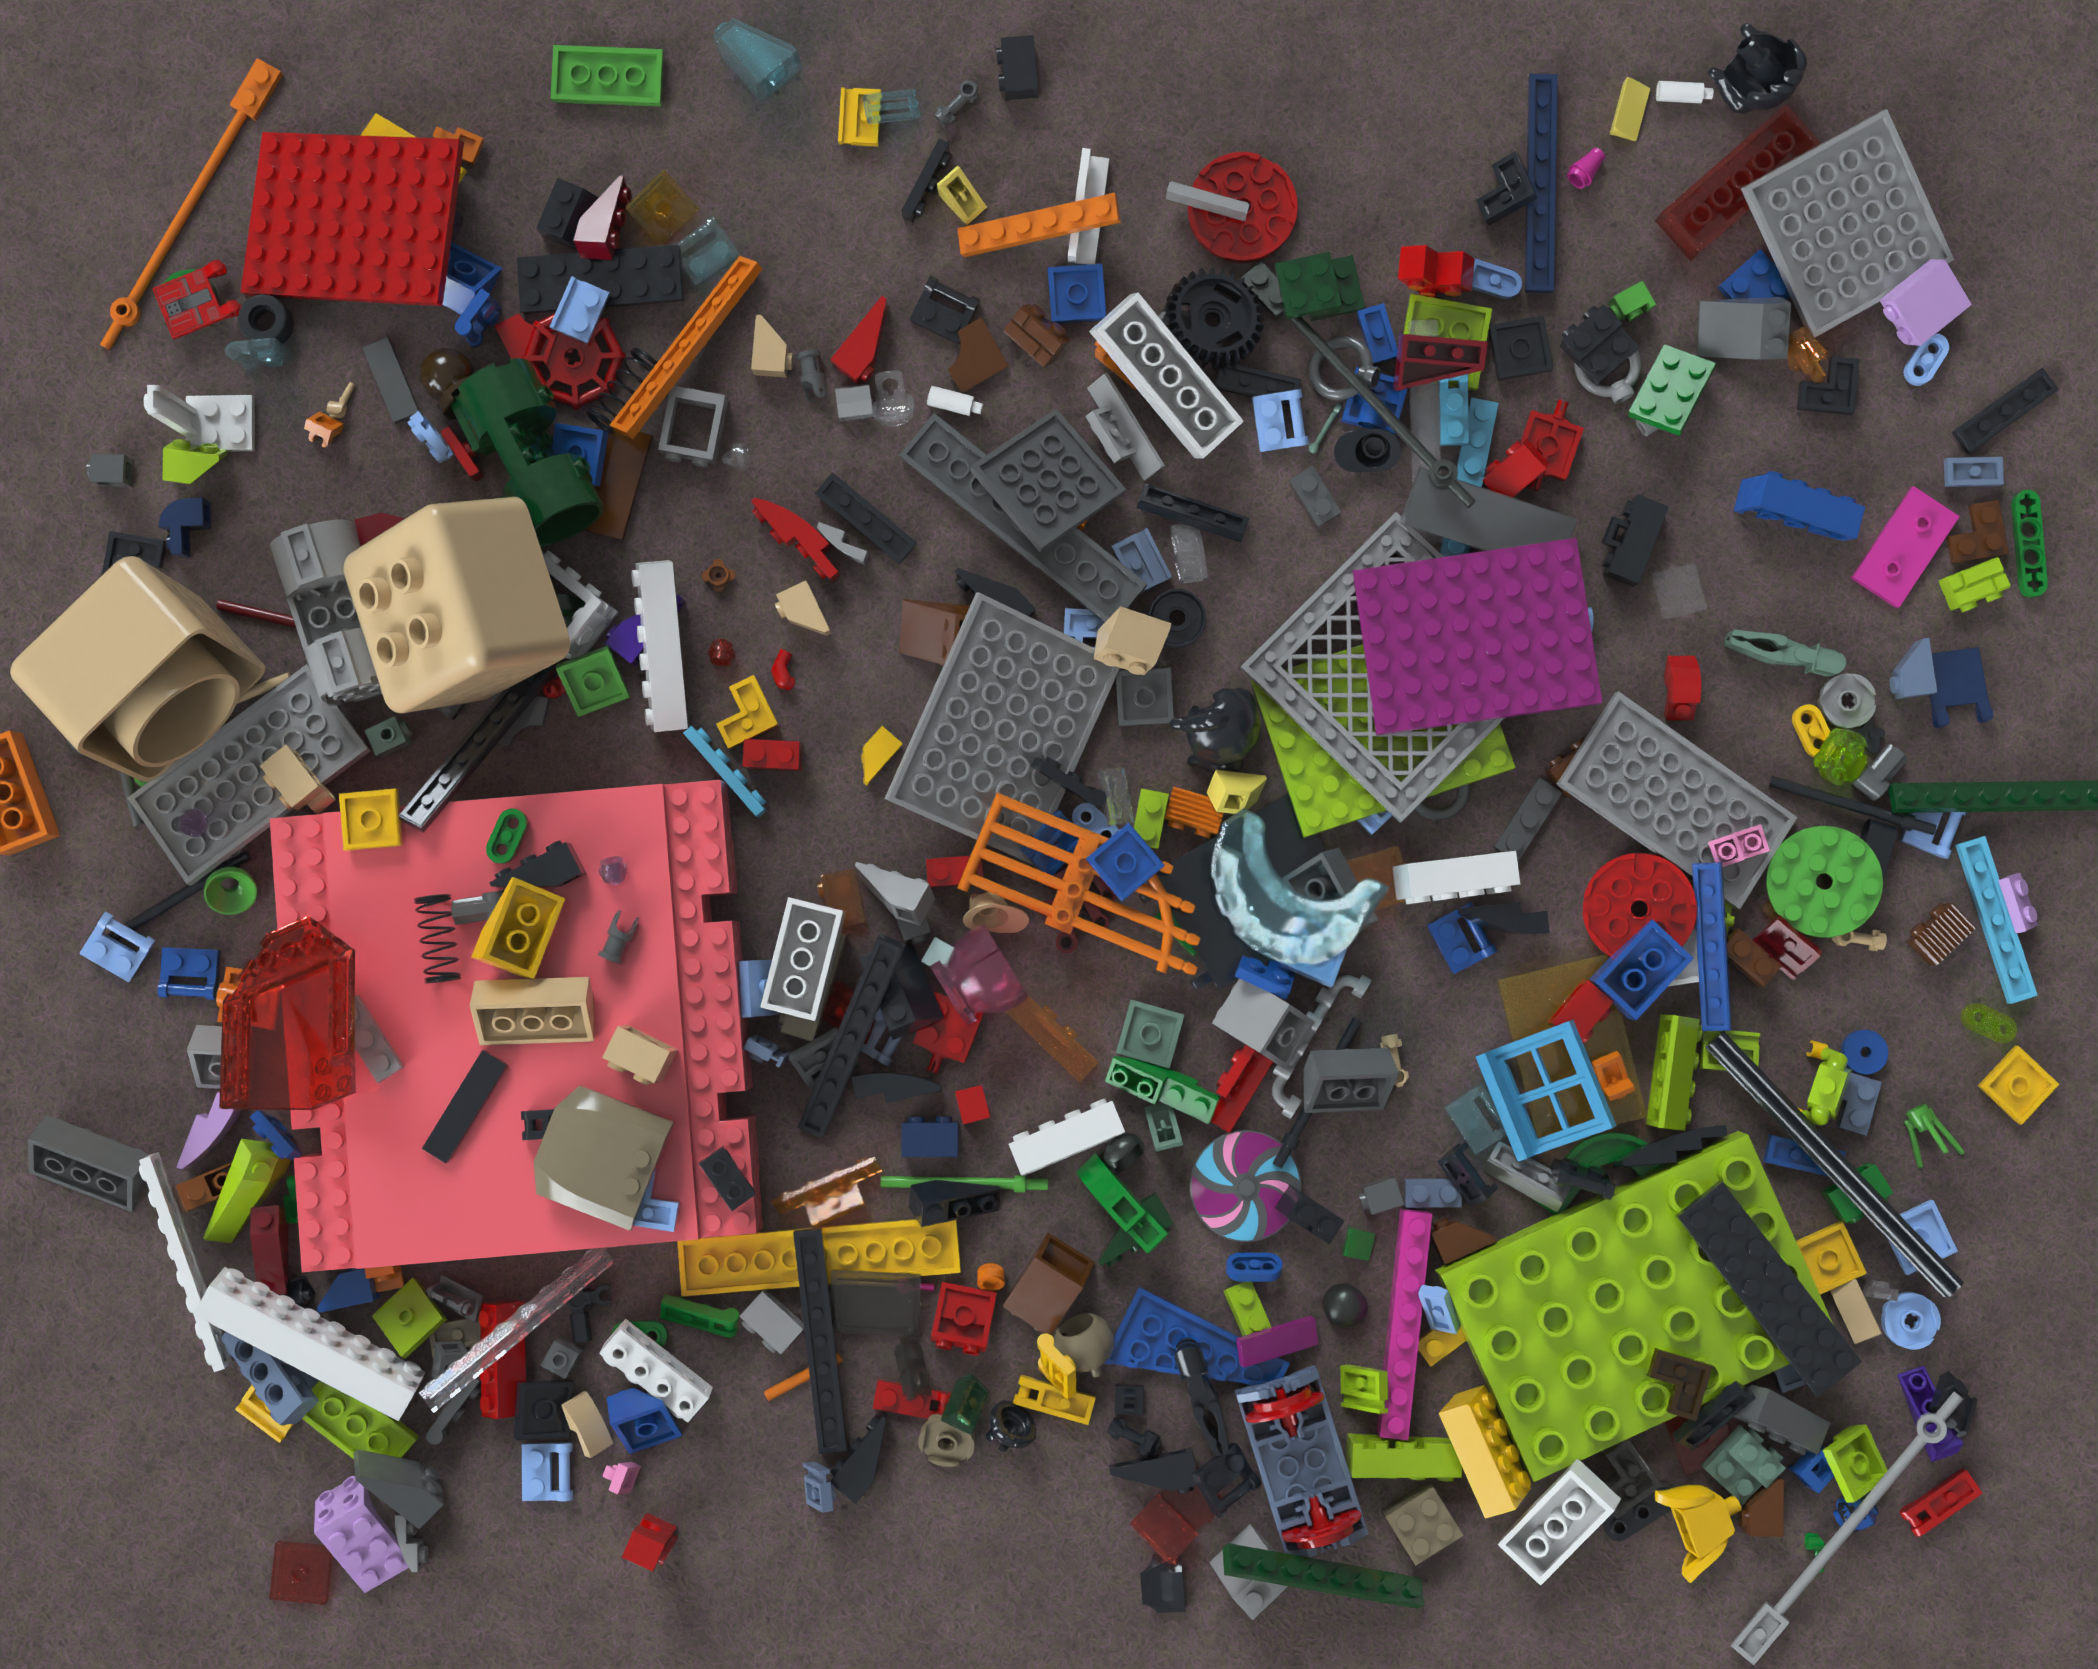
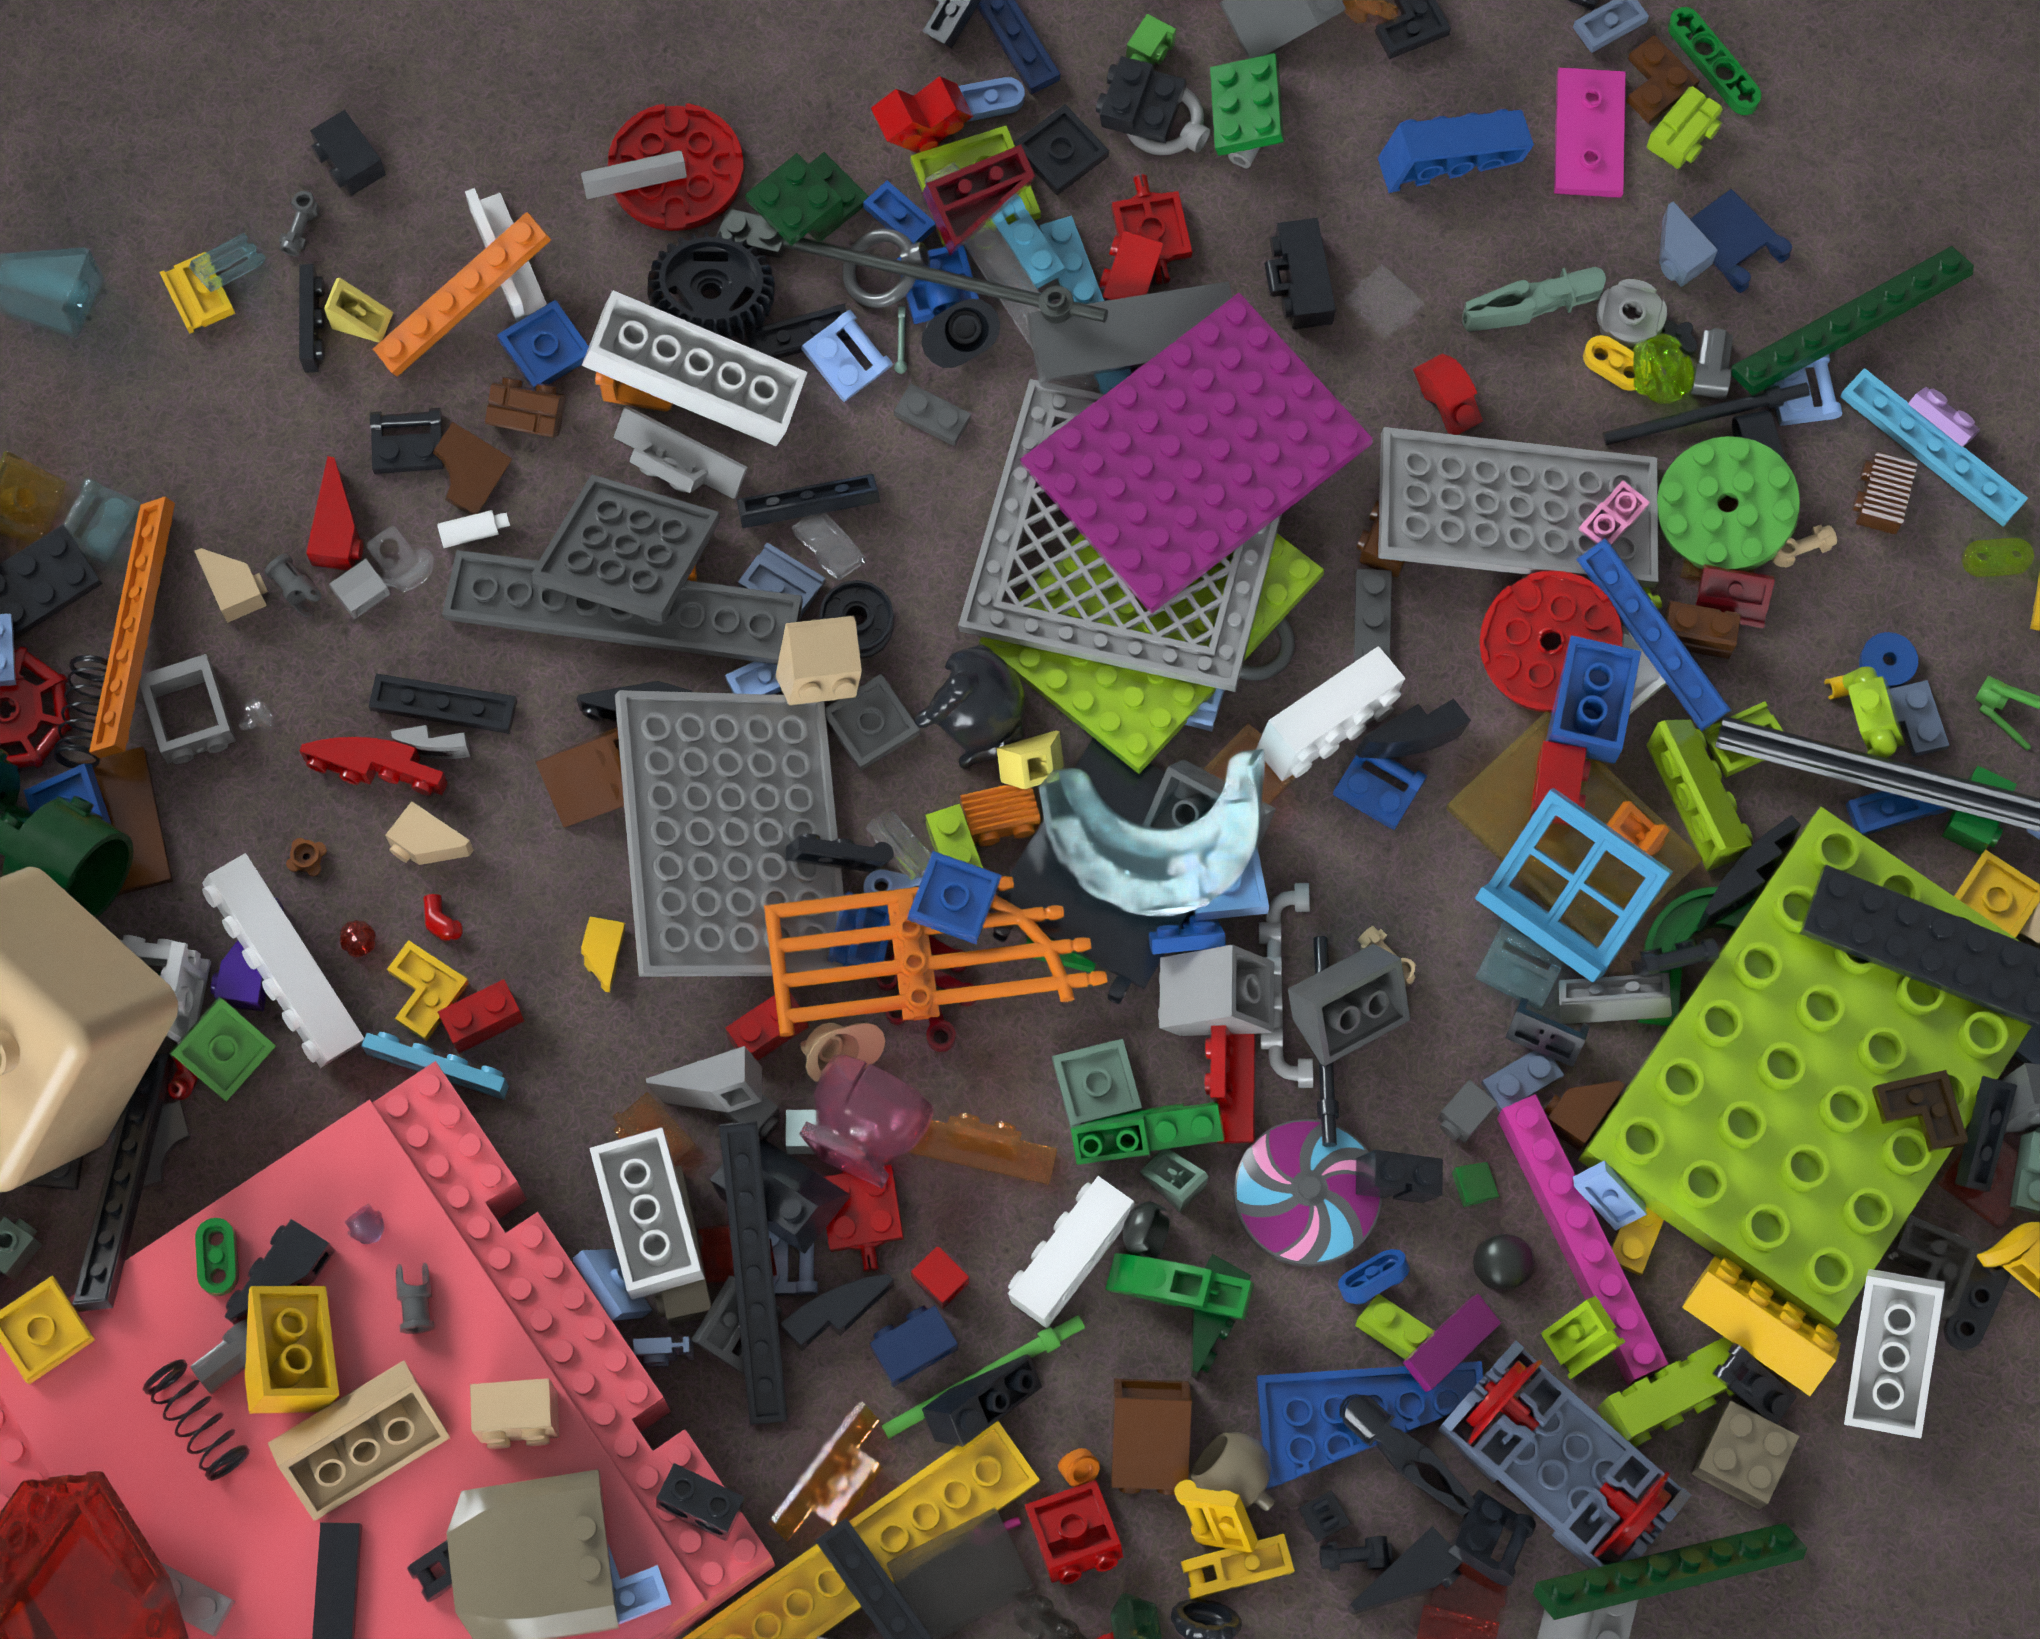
camera: 35 degrees left, 15 degrees down
(1455, 1486) = (1754, 1384): none -> black plate

